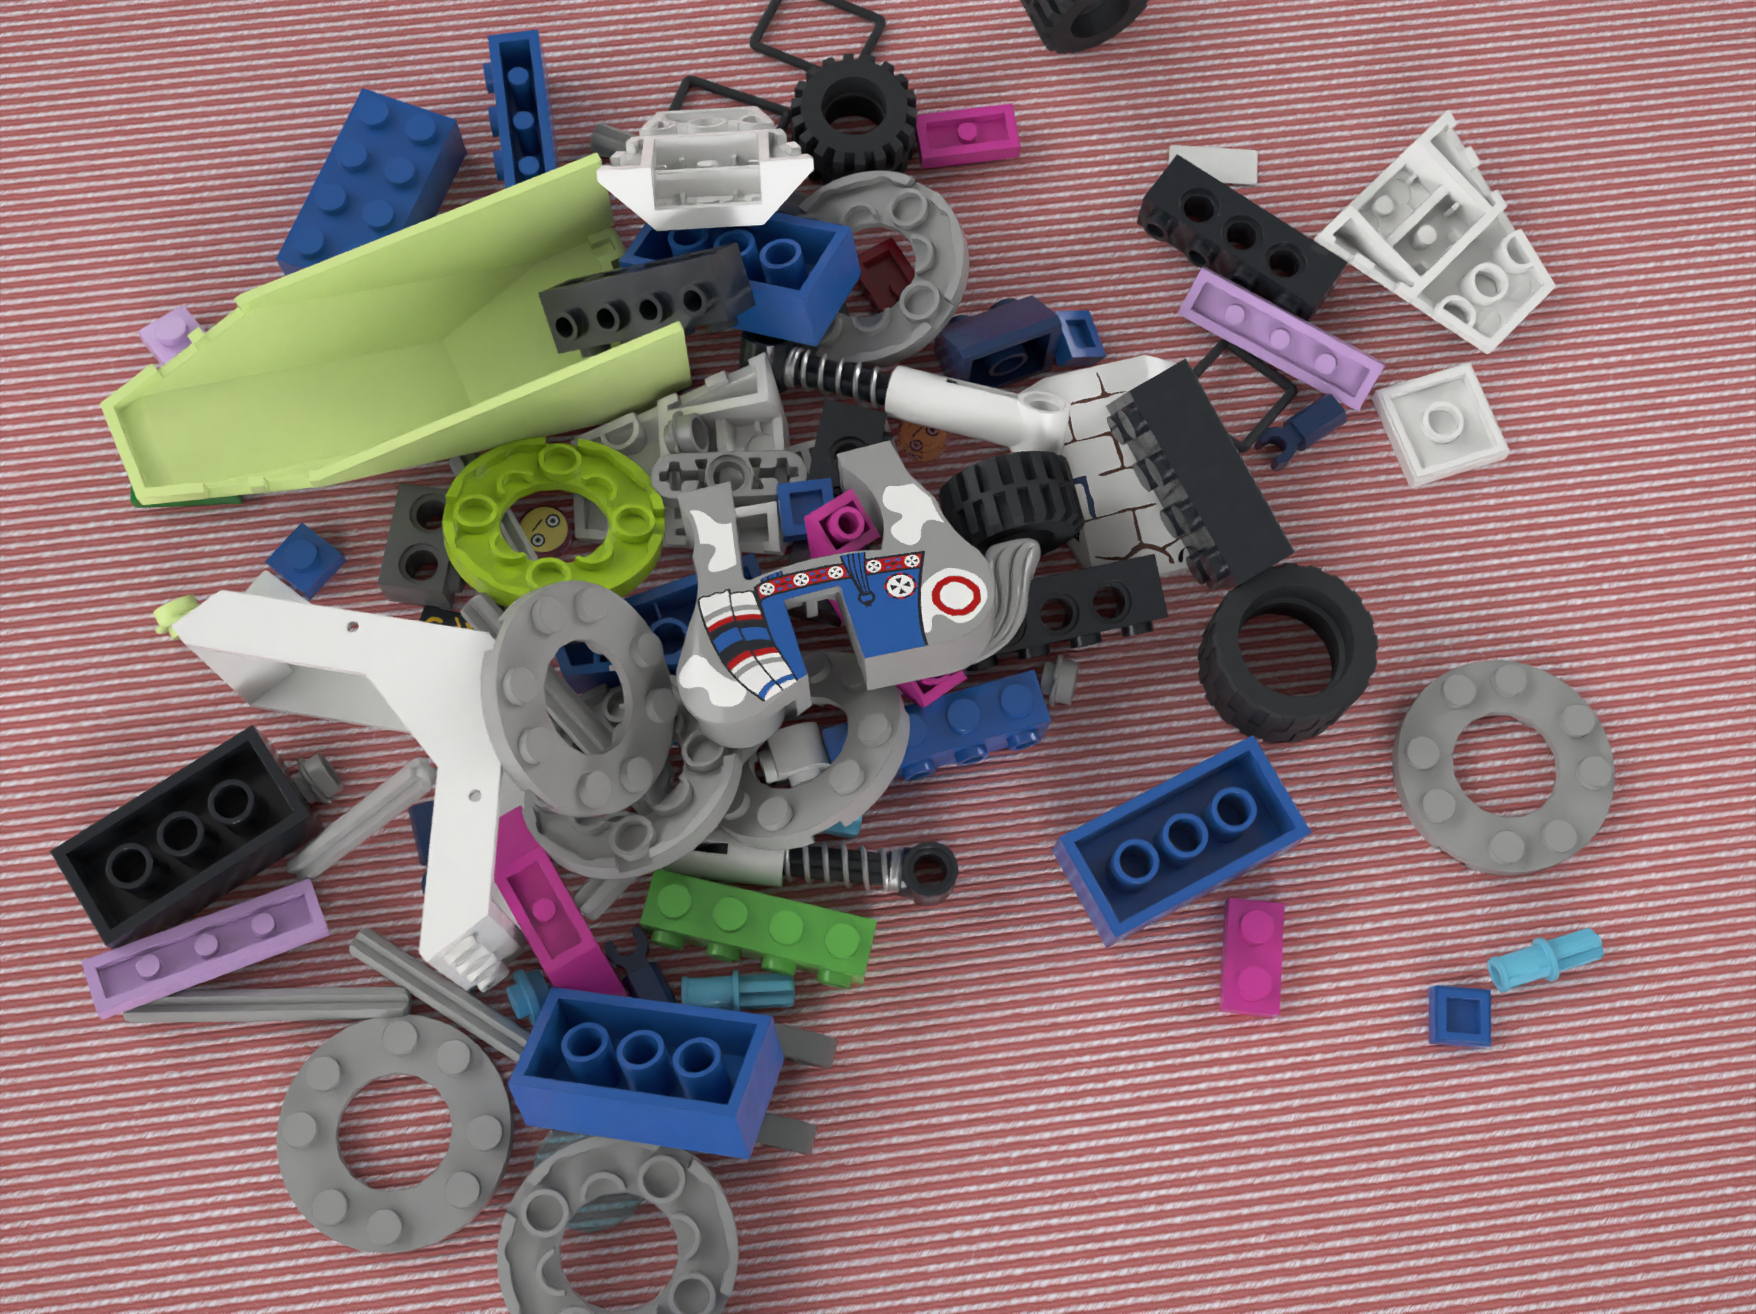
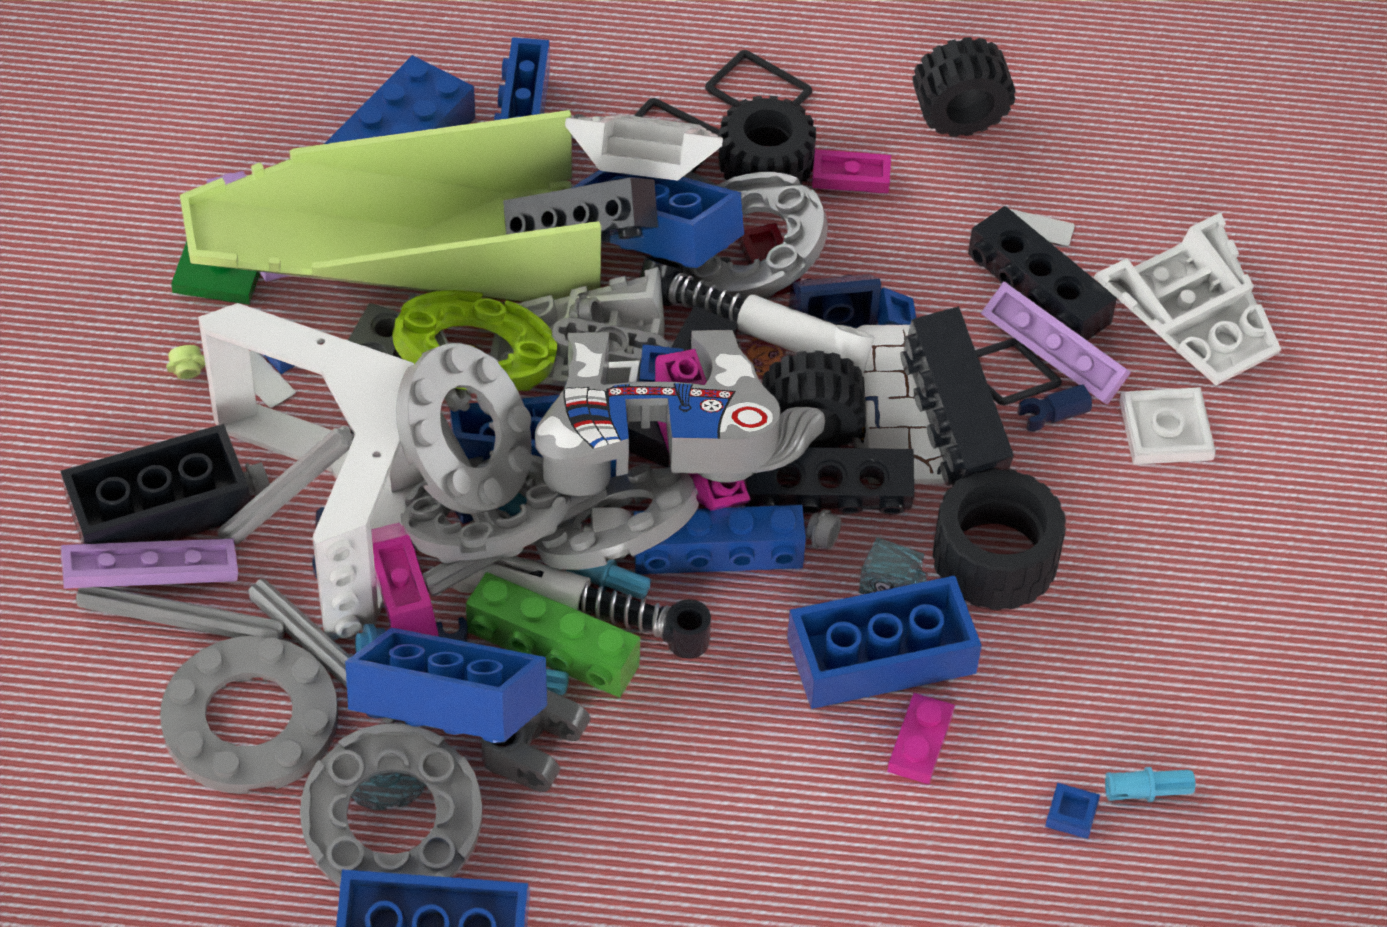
camera: 15 degrees right, 20 degrees down
(1164, 729) = (891, 567): none -> clear light blue brick
(1455, 823) = (1144, 706): light grey plate -> none

